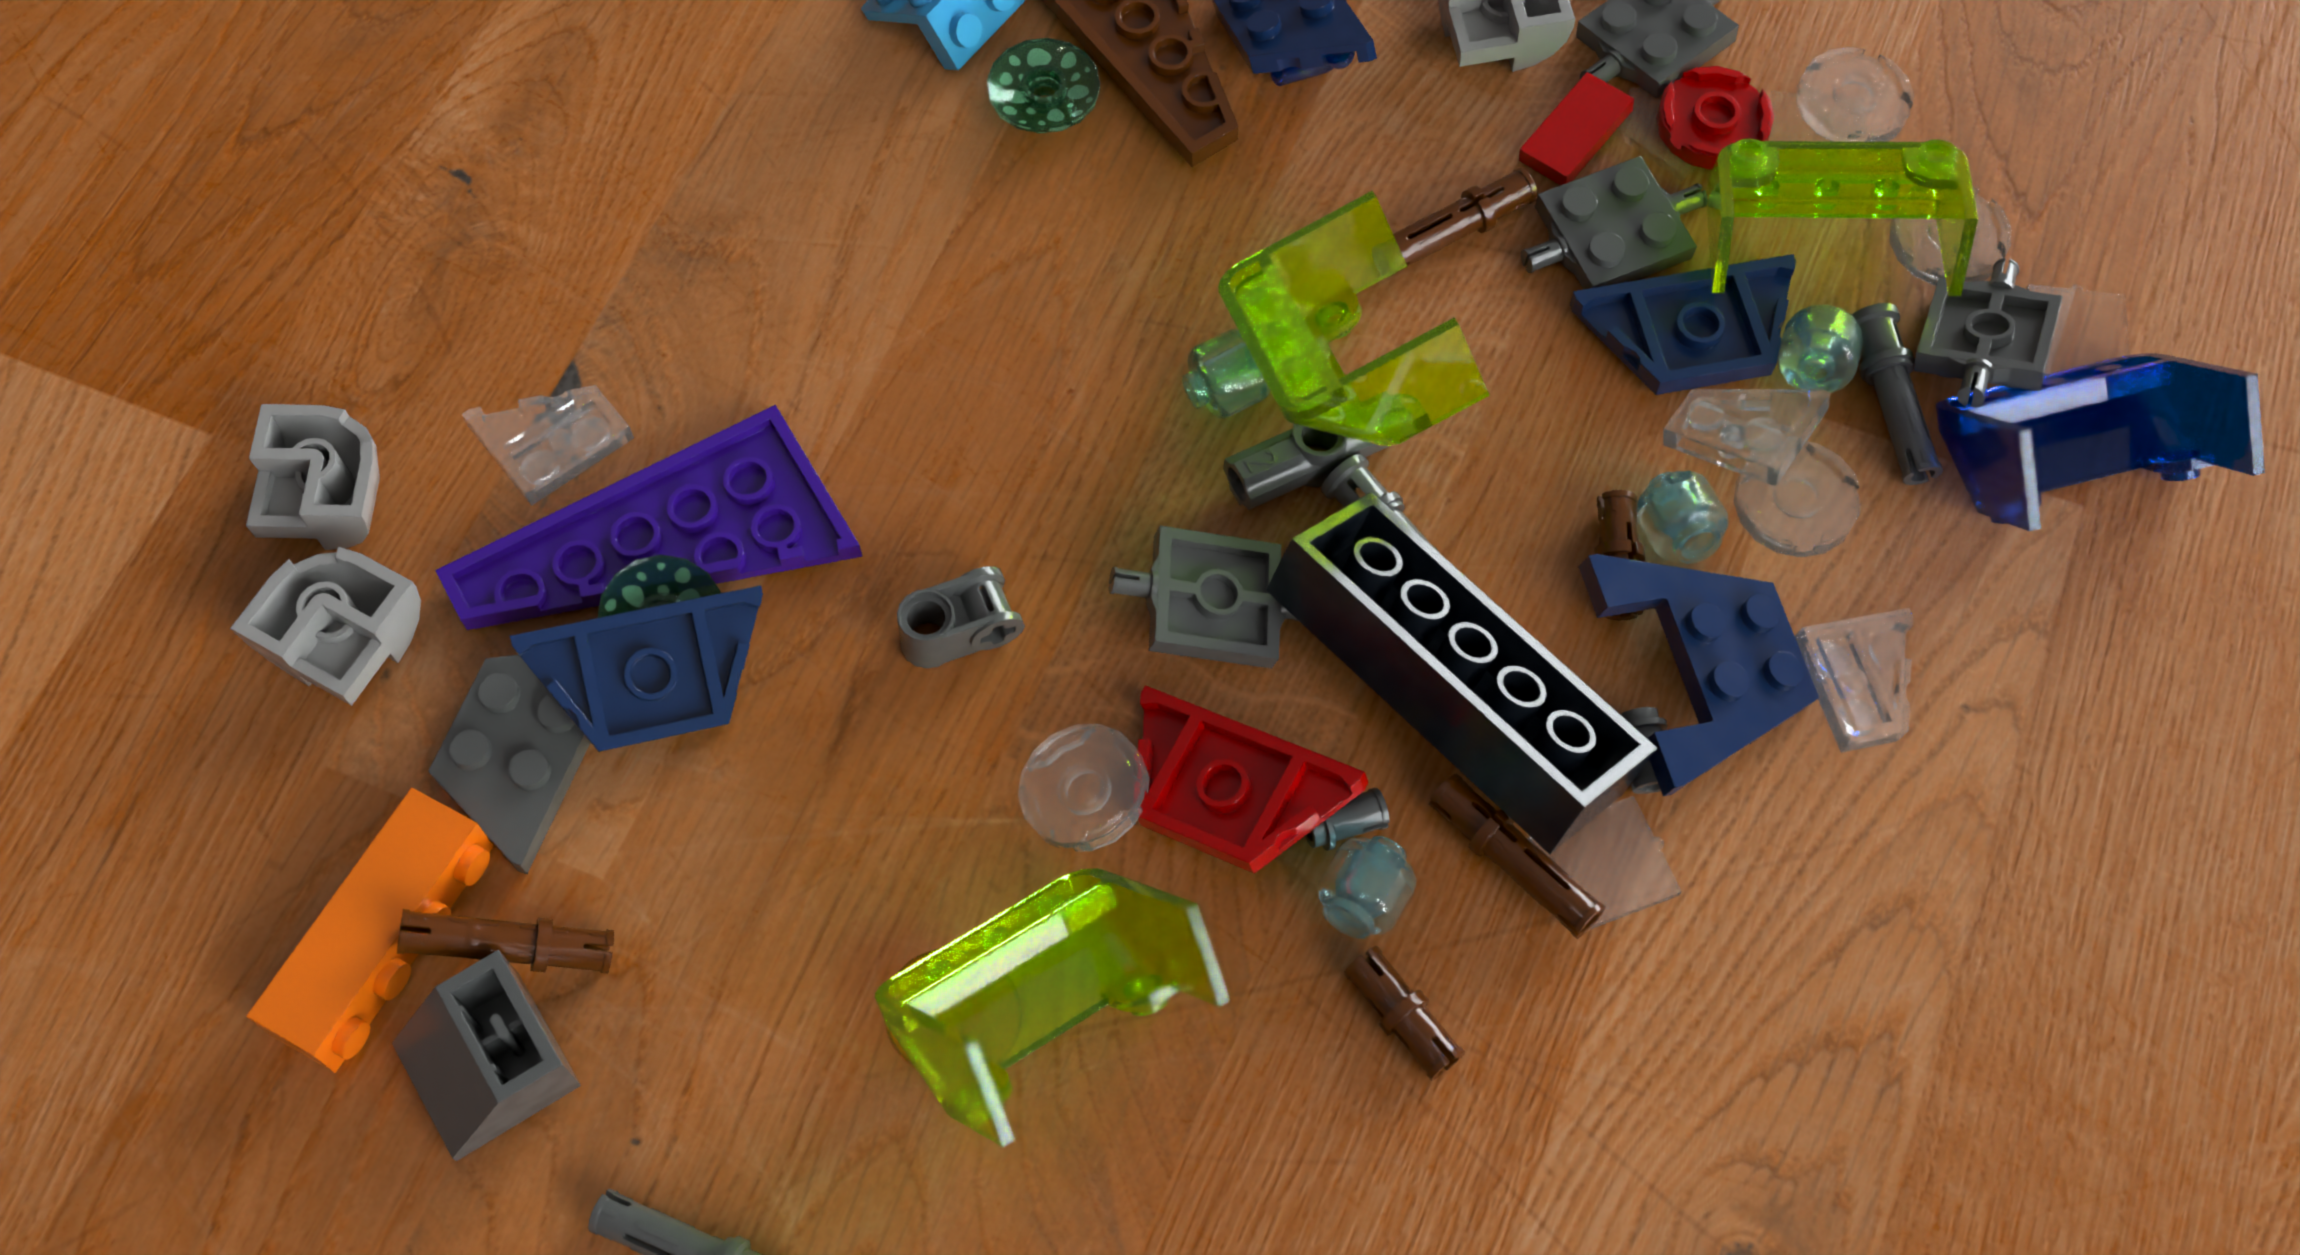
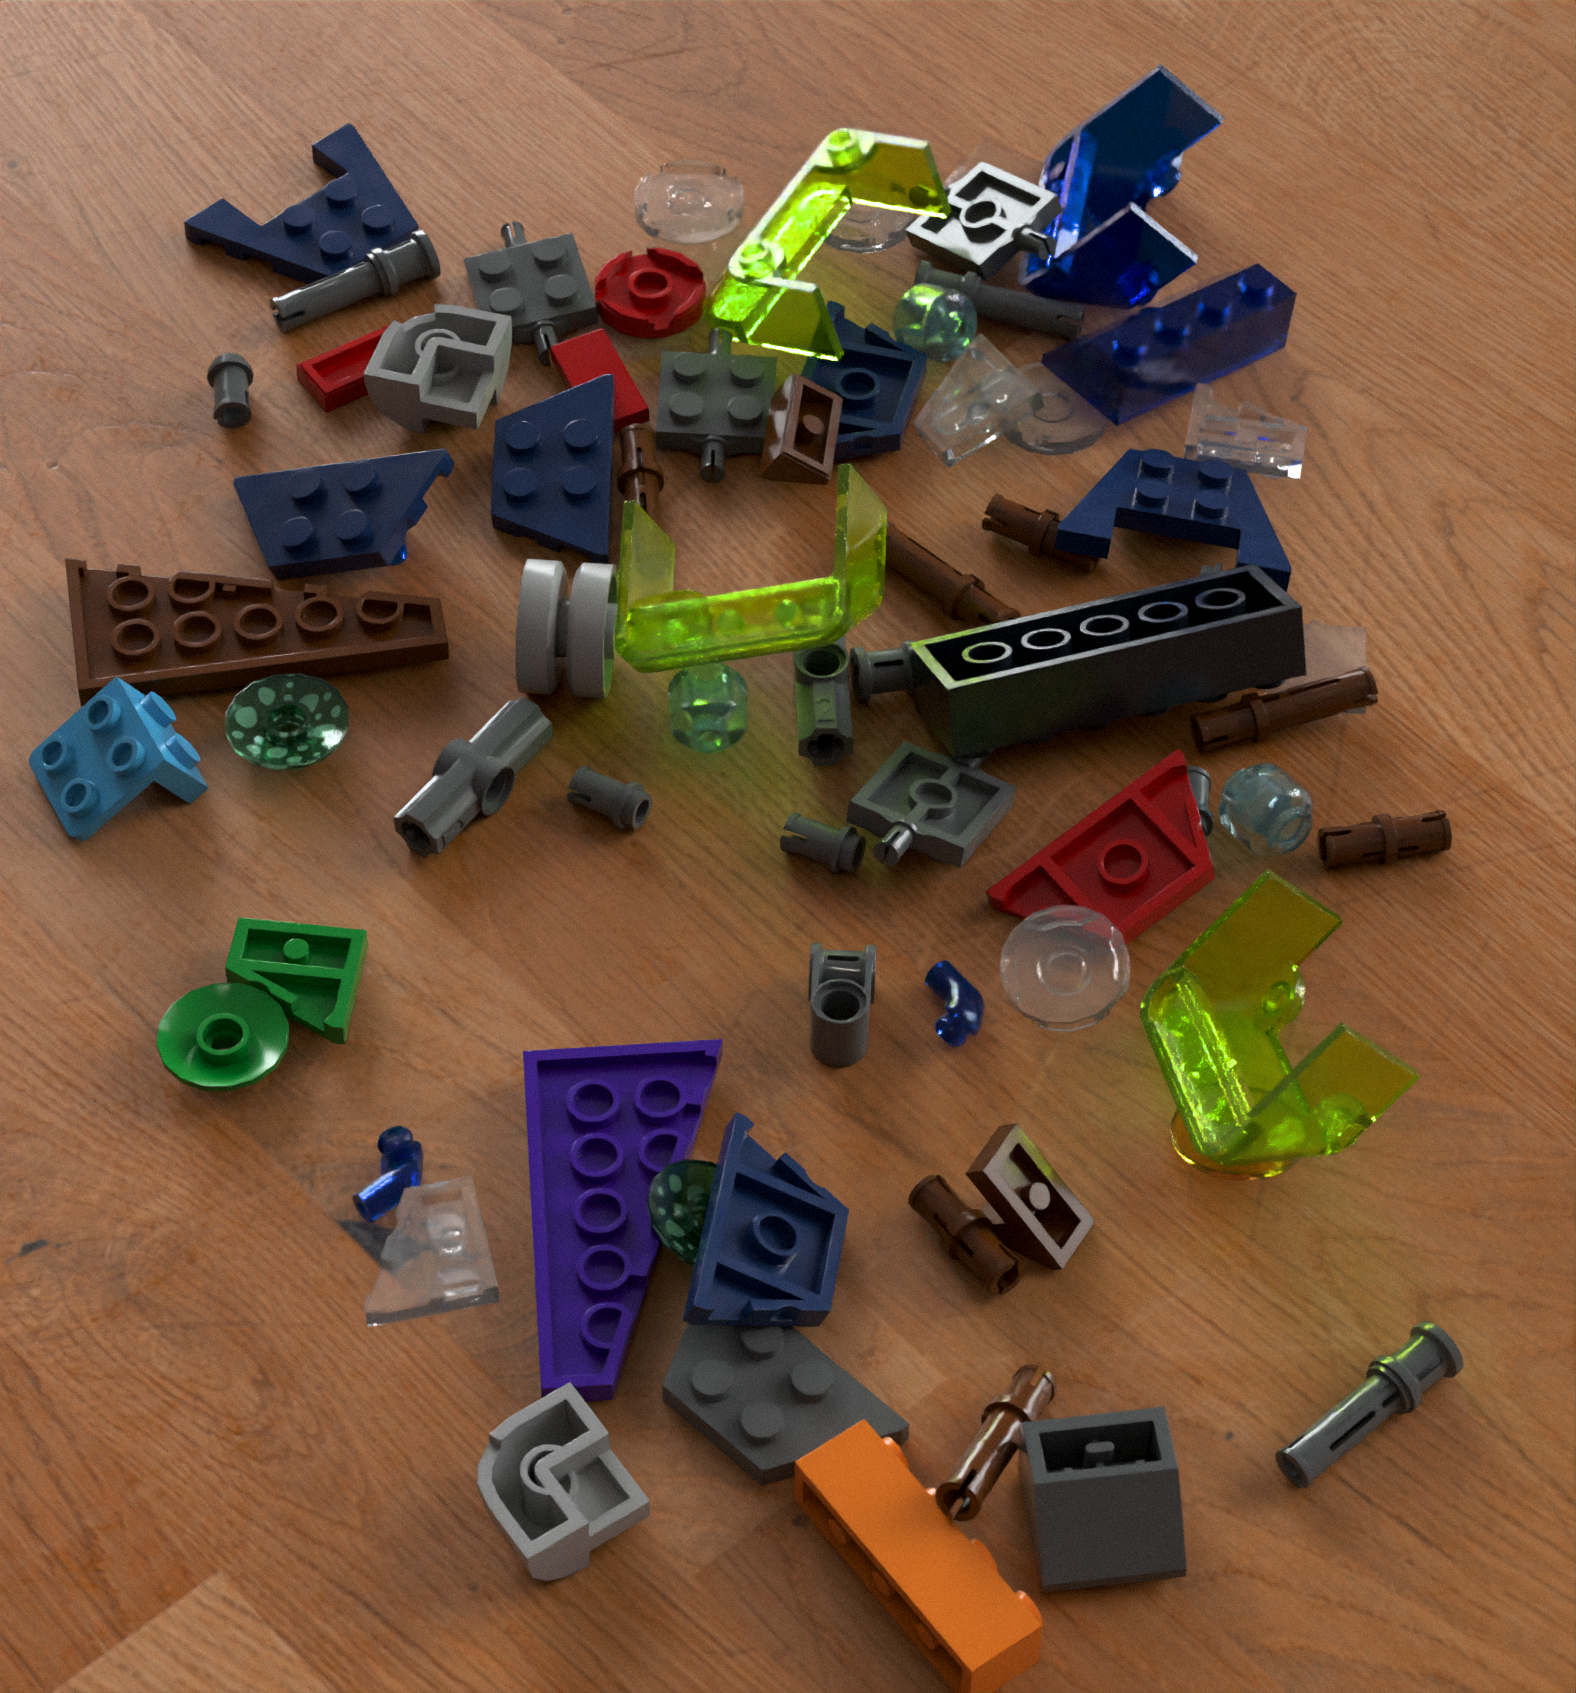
camera: 65 degrees left, 15 degrees down
(313, 475) = (368, 1453): light grey brick -> none
(625, 380) = (399, 1169): none -> clear blue arm
(689, 178) = (218, 1019): none -> green dish
(744, 829) = (966, 1234): none -> reddish brown pin
(791, 218) = (303, 968): none -> green wing
(792, 861) = (1028, 1200): none -> reddish brown slope
(1004, 722) = (962, 1002): none -> clear blue arm
(1060, 240) = (473, 777): none -> dark grey piece
(1094, 360) = (623, 803): none -> dark grey pin
(1132, 531) = (824, 843): none -> dark grey pin
(1229, 213) = (561, 628): none -> light grey wheel
(1453, 141) = (558, 470): none -> dark blue wing
(1496, 516) = (960, 594): none -> reddish brown pin
(1601, 304) = (801, 433): none -> reddish brown slope
(1682, 517) = (1036, 473): clear light blue head -> none
(1944, 566) = (1177, 343): none -> clear blue slope

